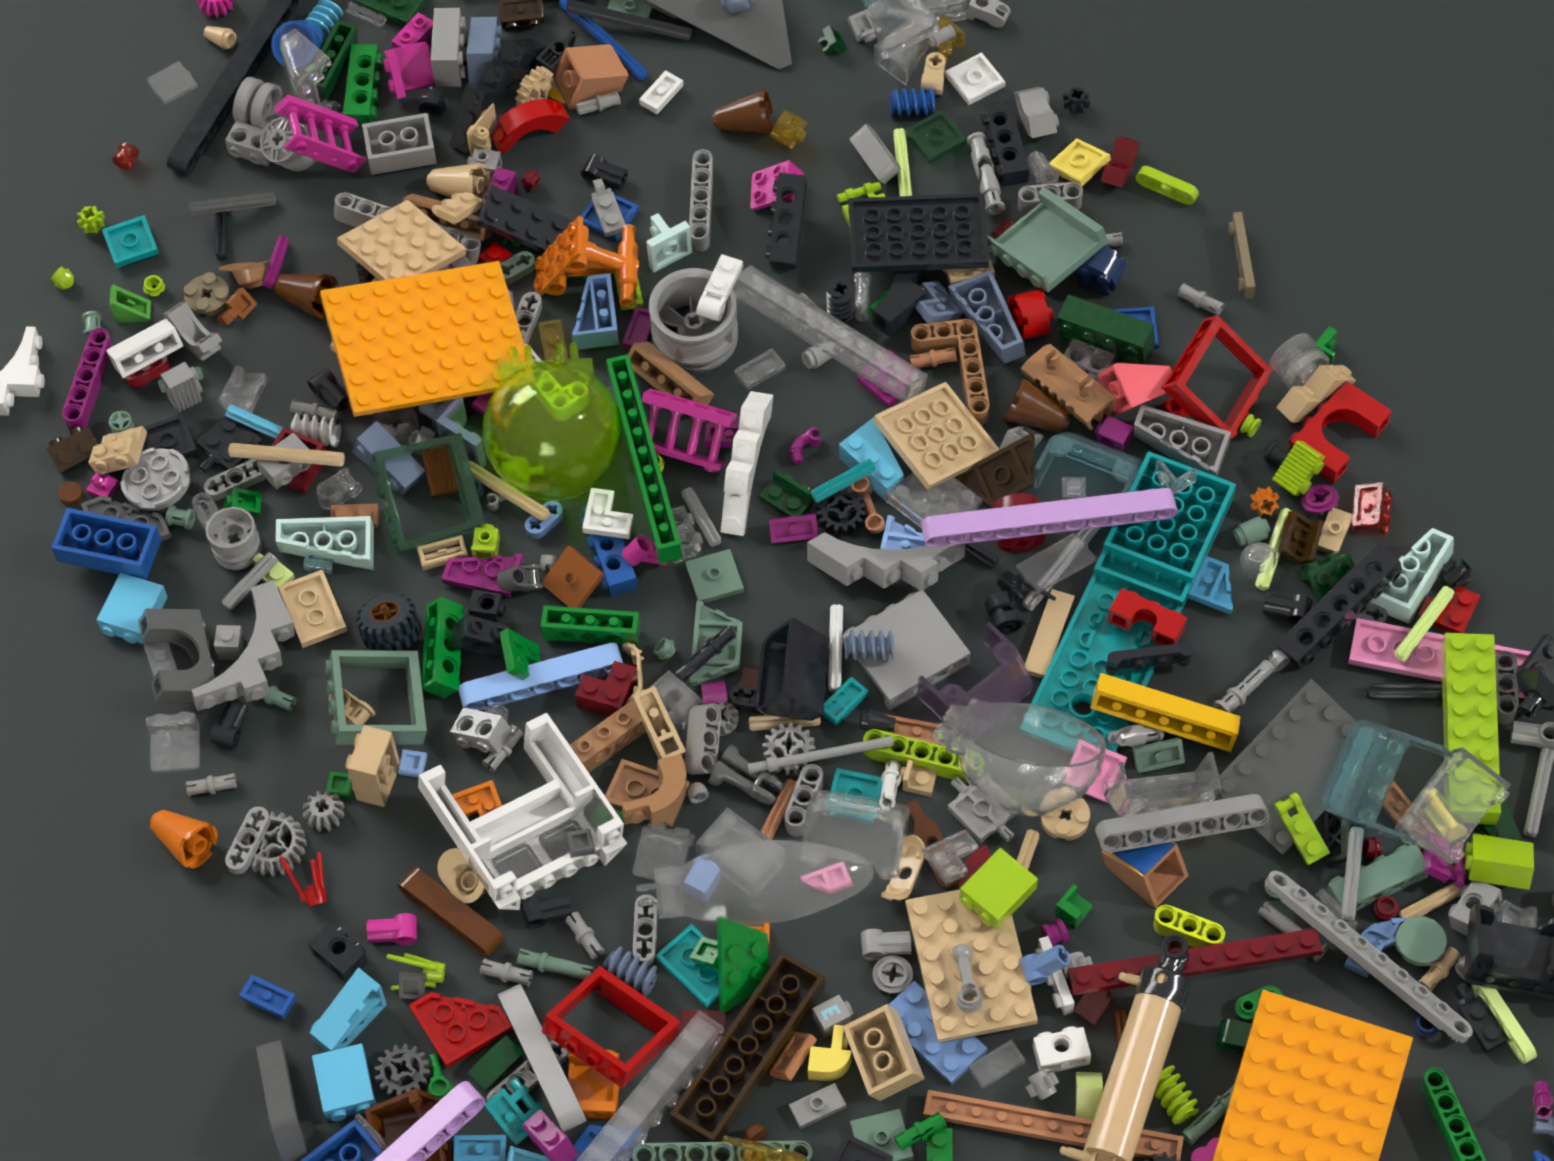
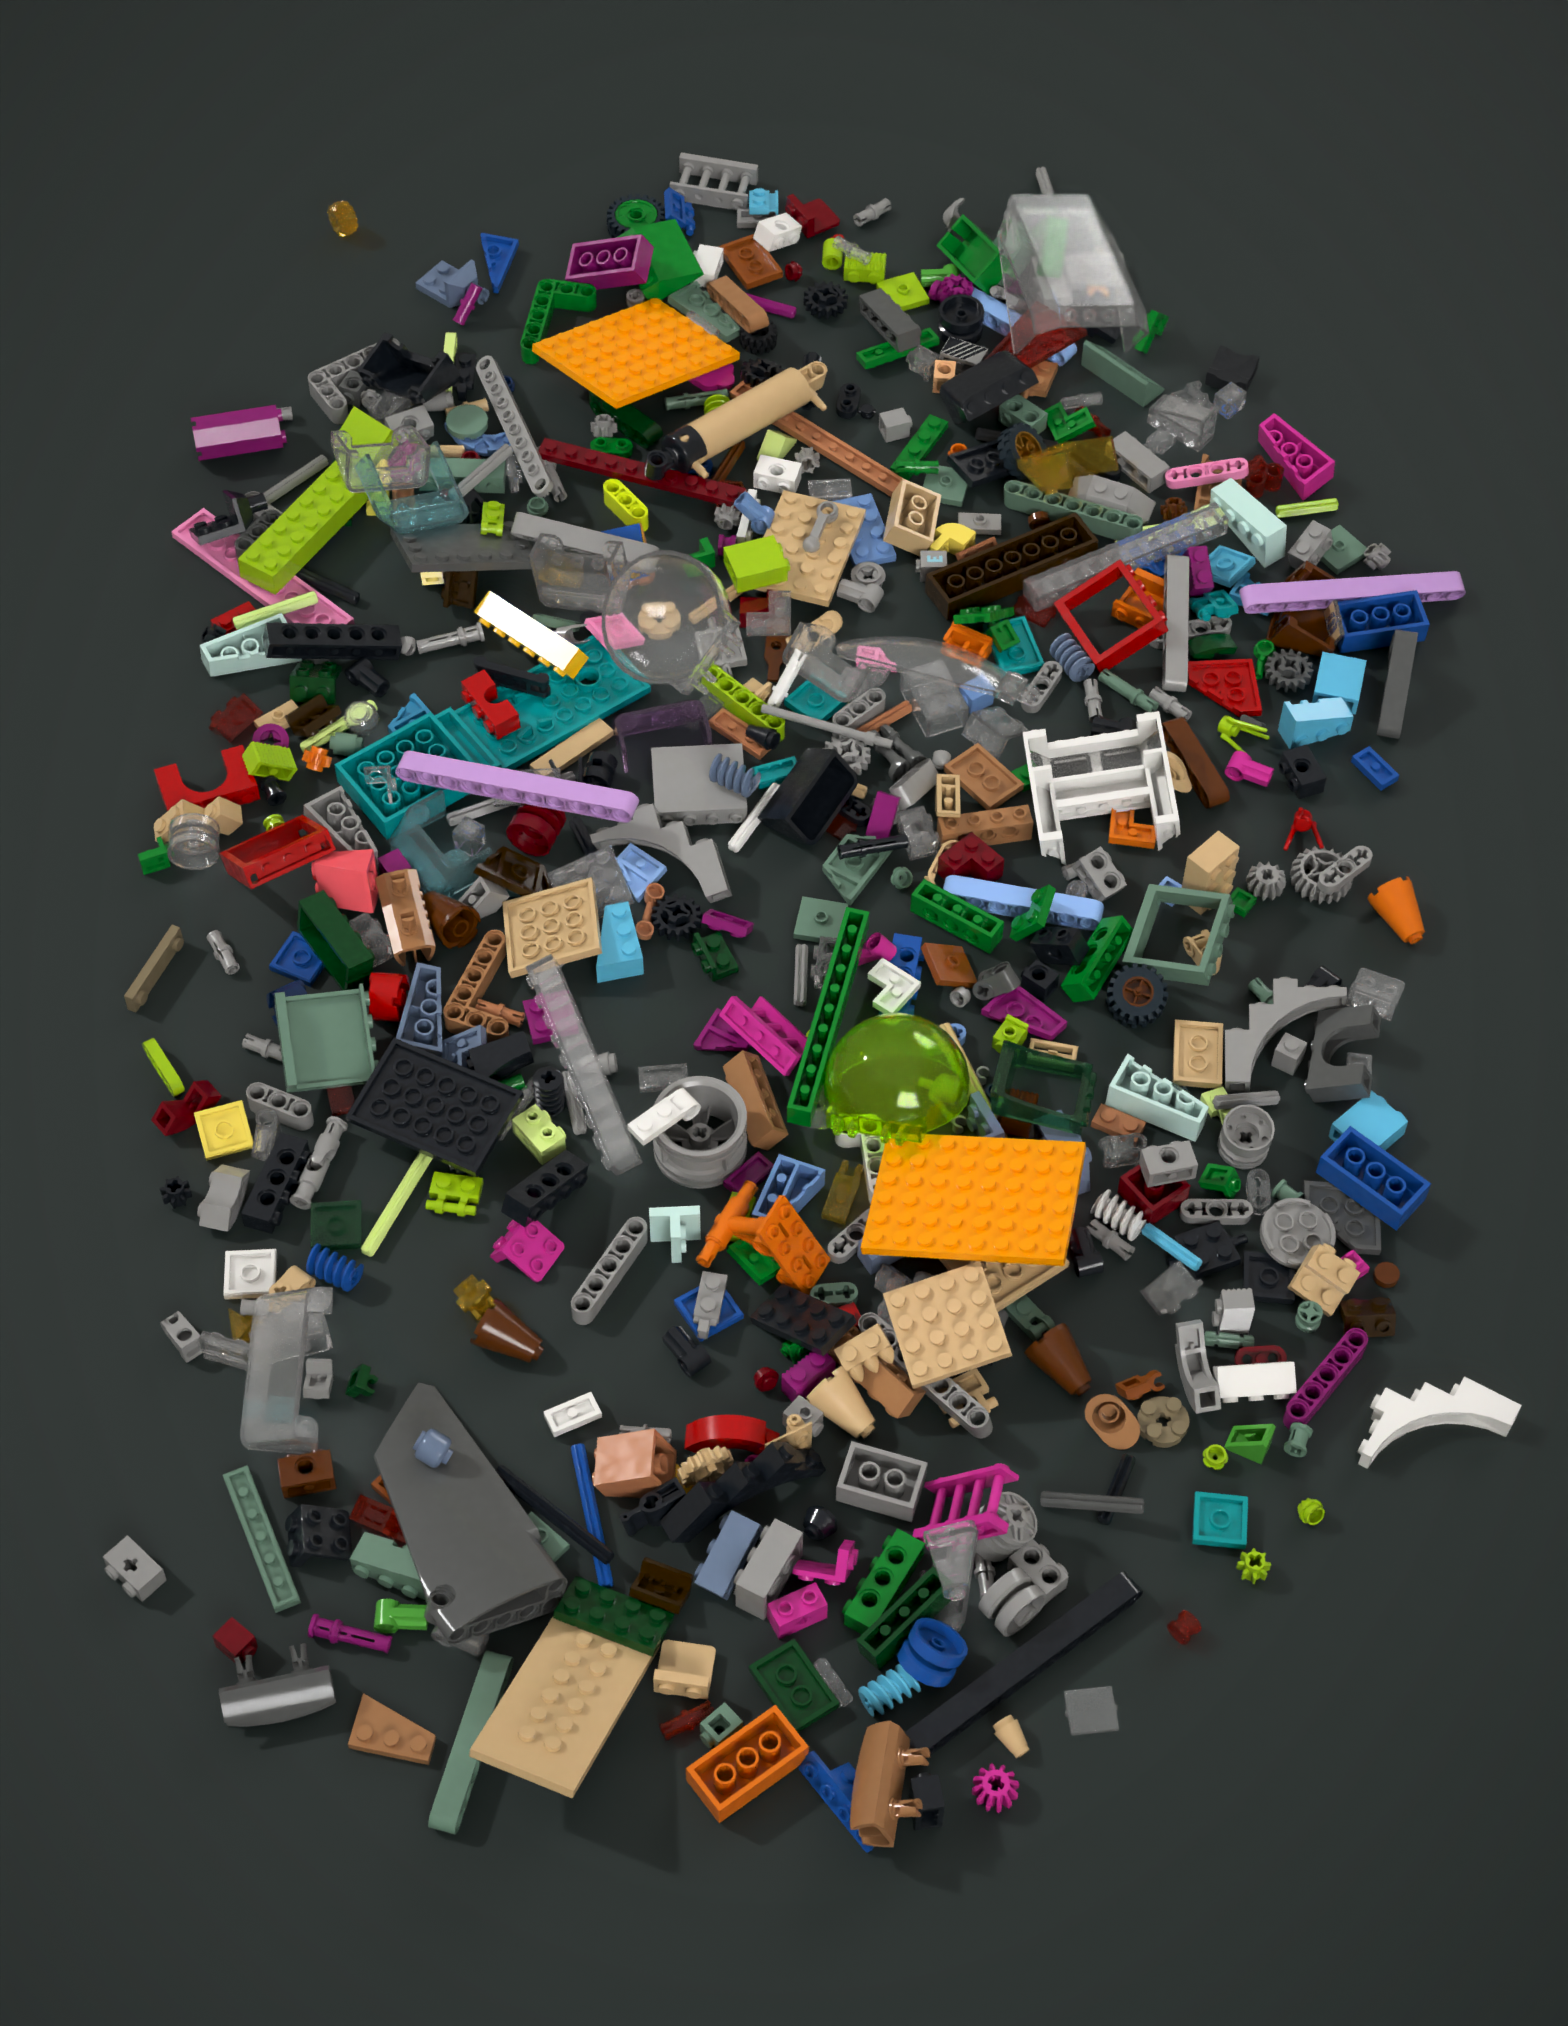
camera: 155 degrees left, 5 degrees down
(211, 784) = (1355, 949): light grey pin -> none
(276, 261) = (1074, 1416): magenta axle -> none
(286, 454) = (1167, 1149): tan axle -> none
(580, 843) = (1064, 746): dark grey tile -> none
(665, 800) = (975, 744): medium nougat arch -> none
(741, 469) = (732, 974): white arch -> none
(796, 447) = (661, 996): magenta piece -> none
(823, 268) = (539, 1134): none -> yellowish green brick
(843, 480) = (661, 922): teal axle -> none
(875, 153) = (409, 1230): light grey beam -> none

